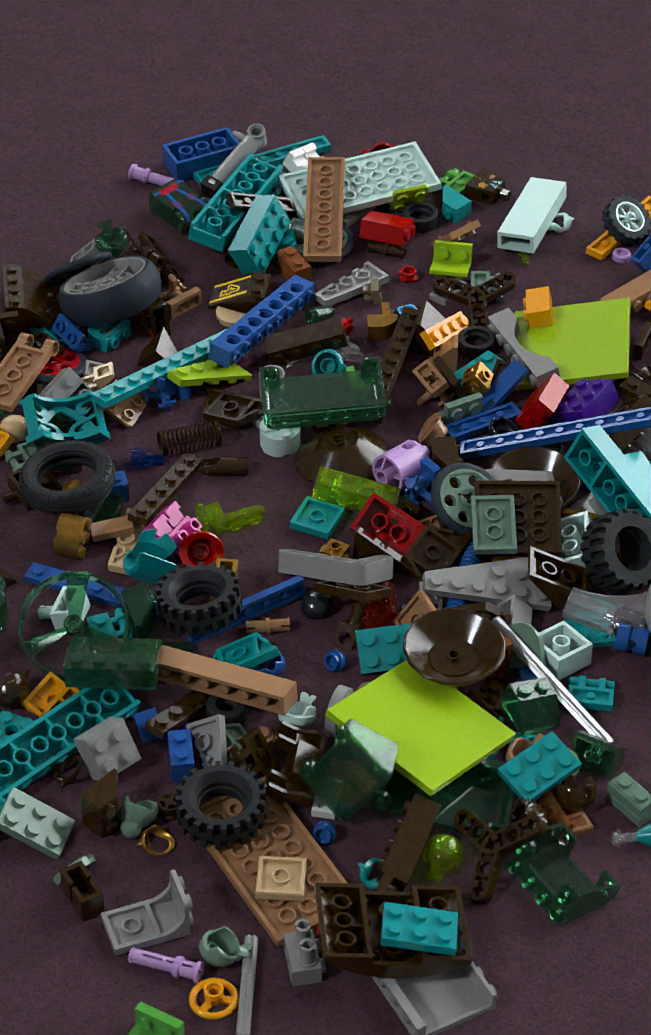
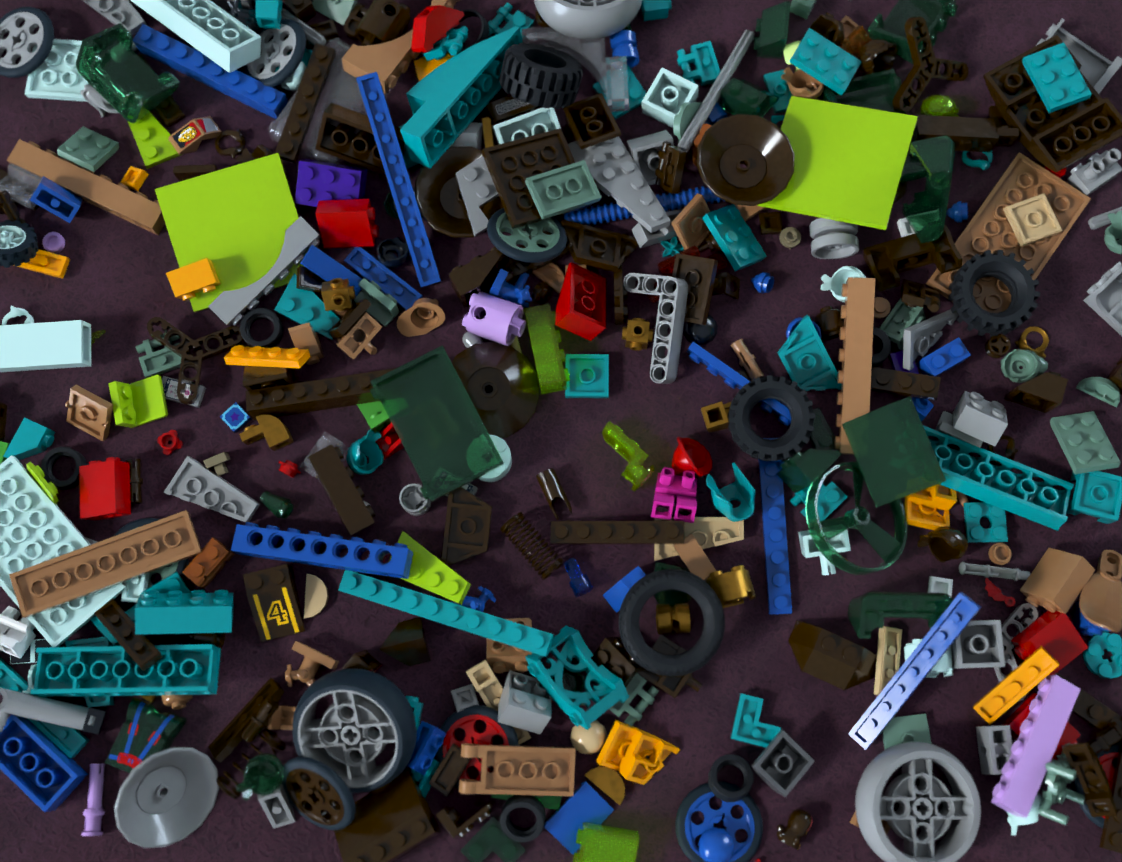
camera: 110 degrees left, 35 degrees up
(130, 194) = (167, 816): none -> light grey dish

